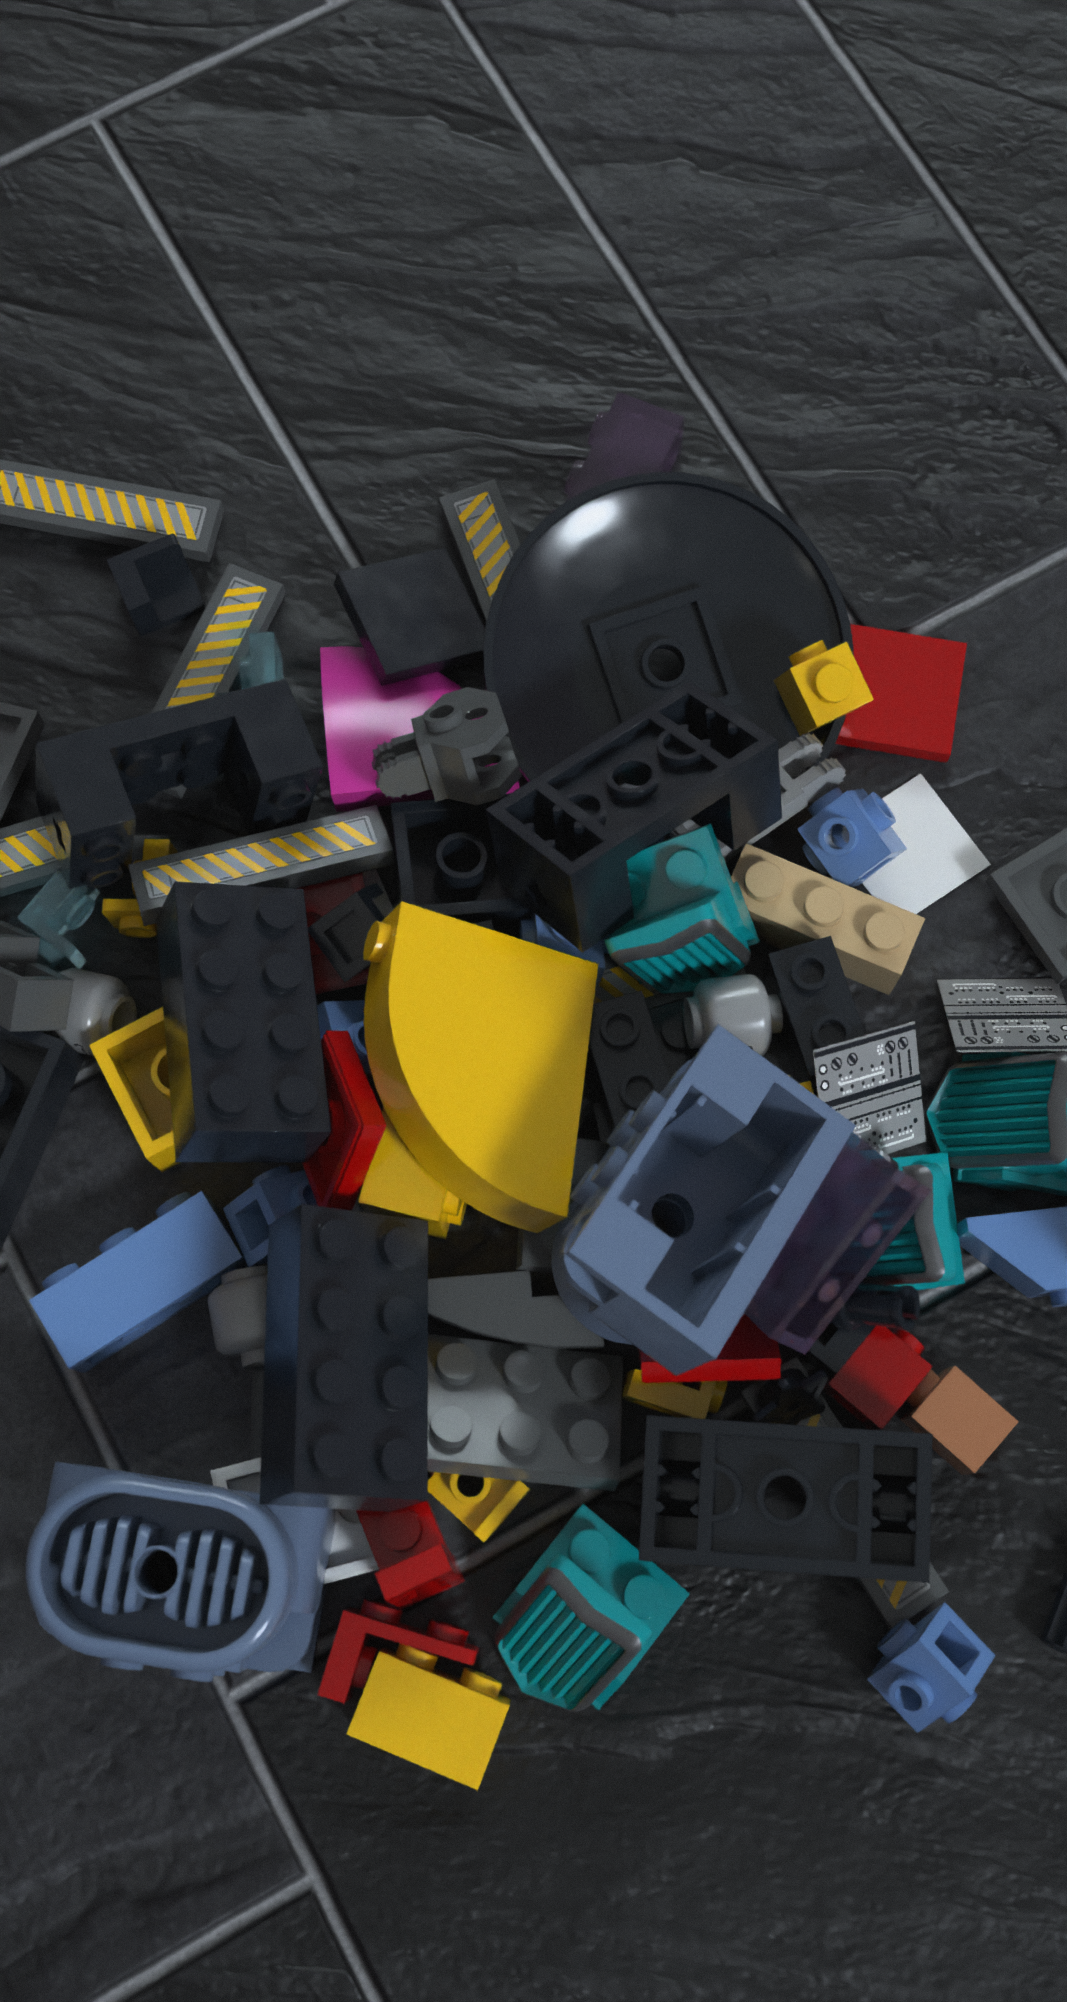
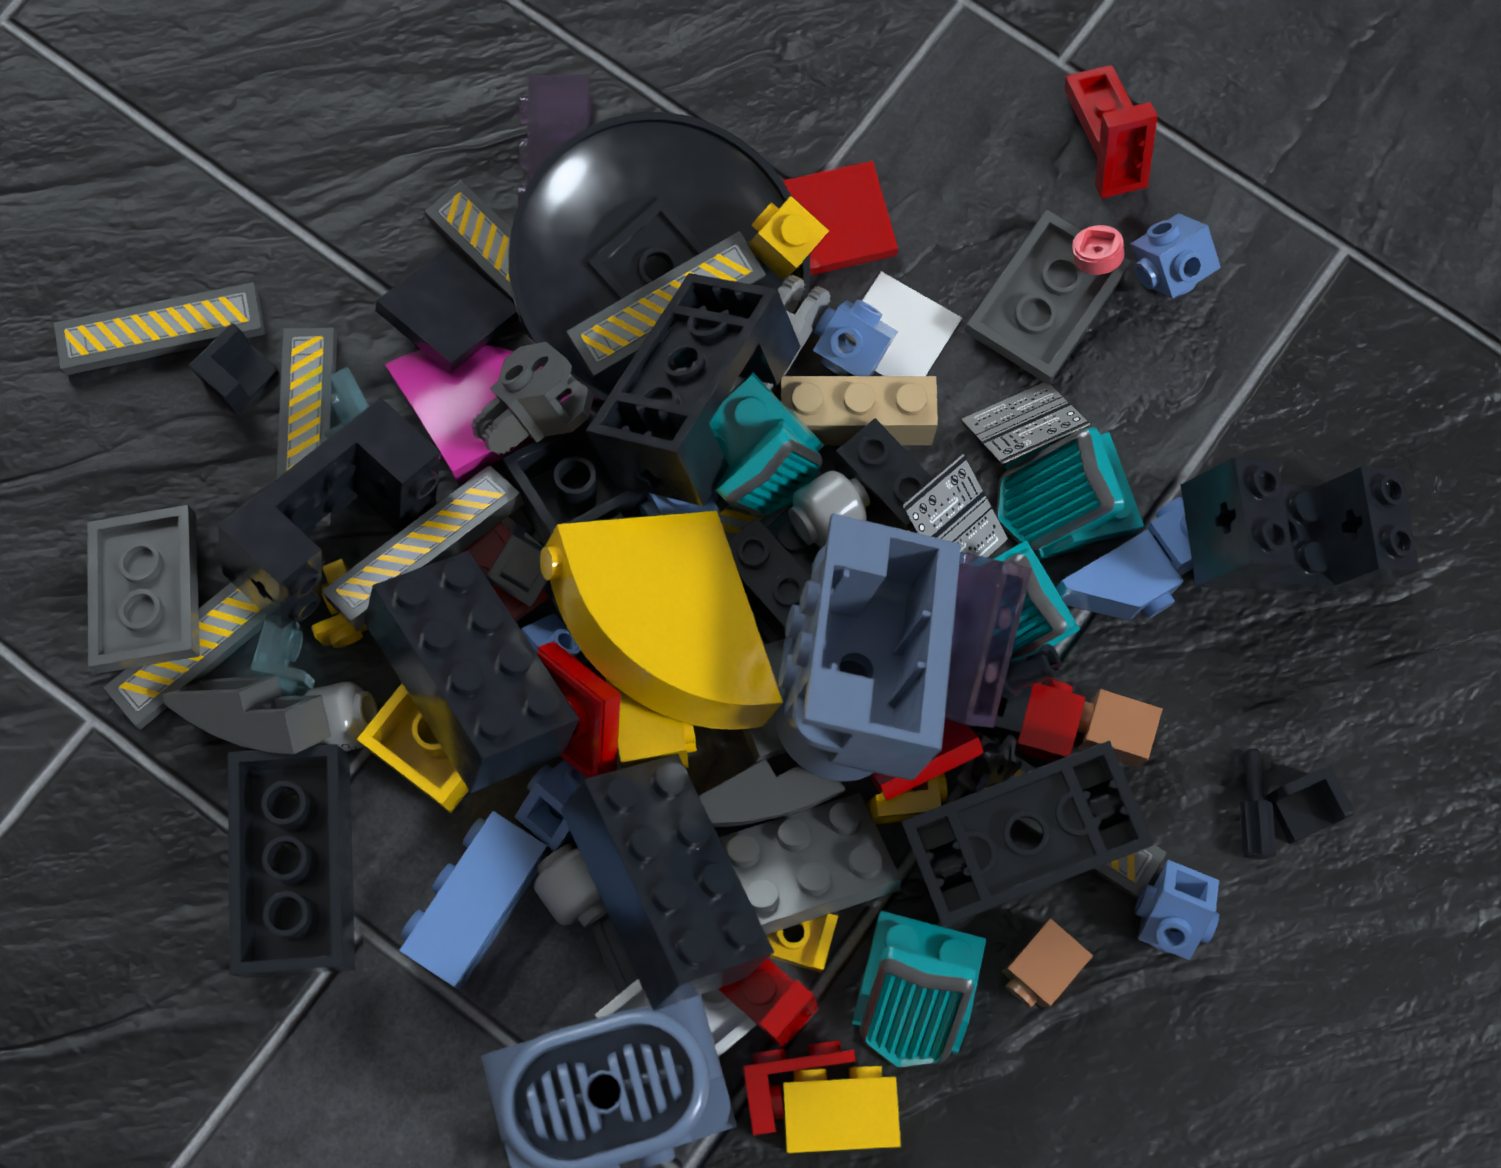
camera: 30 degrees left, 0 degrees up
(580, 713) = (627, 323): none -> tile
(744, 1657) = (1045, 965): none -> nougat brick

